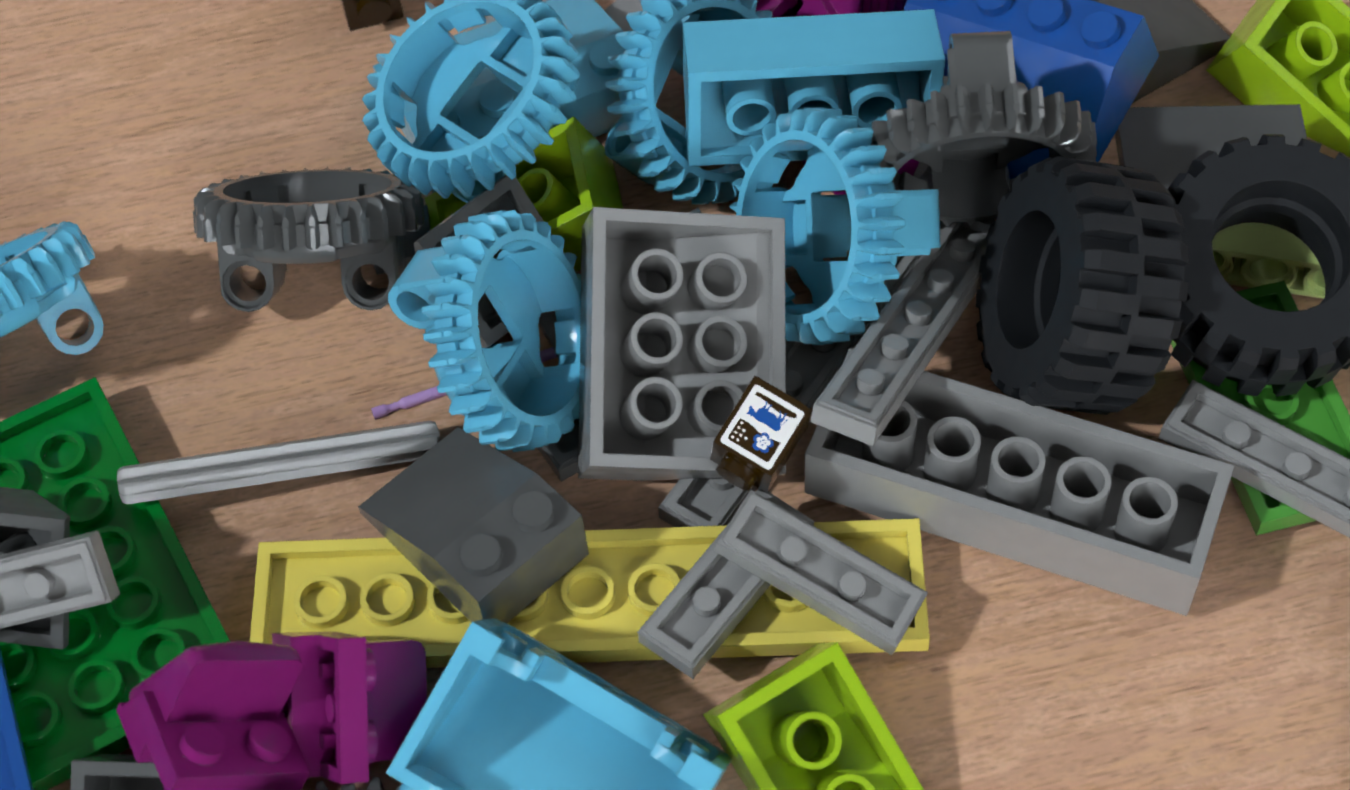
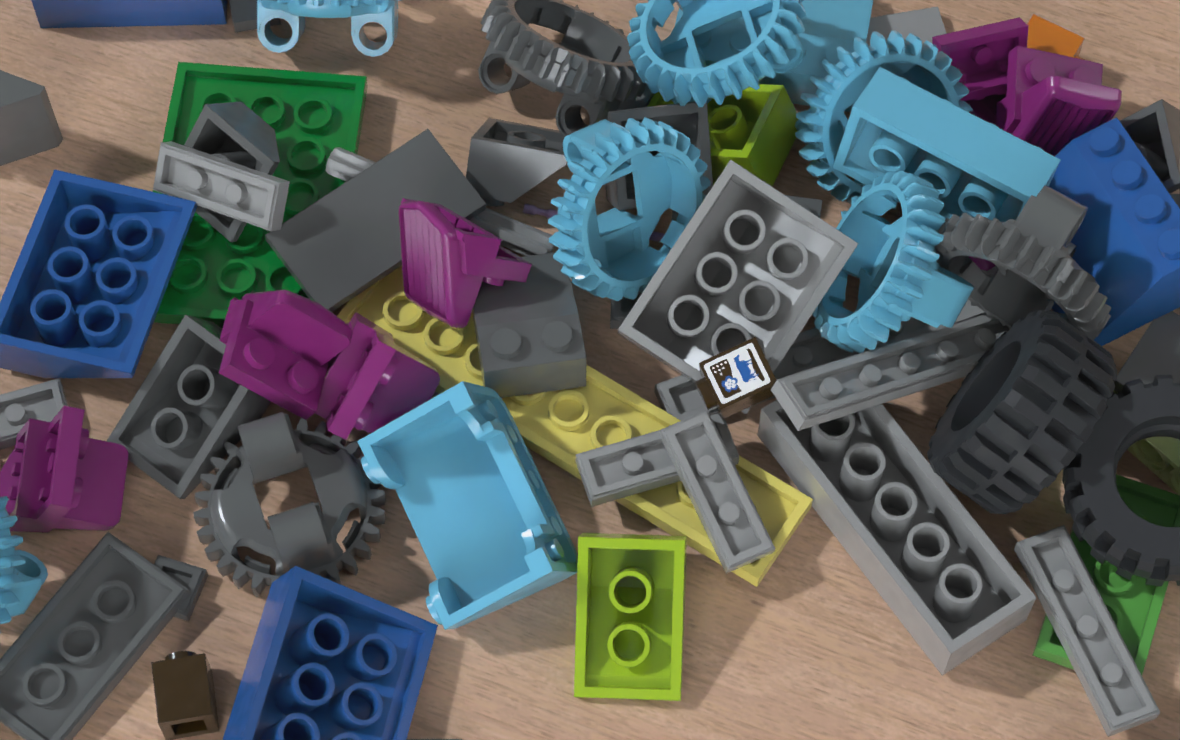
camera: 30 degrees right, 5 degrees up
(223, 521) = (354, 231): none -> dark grey tile
(332, 367) = (512, 159): none -> dark grey slope
(348, 507) = (449, 259): none -> magenta piece

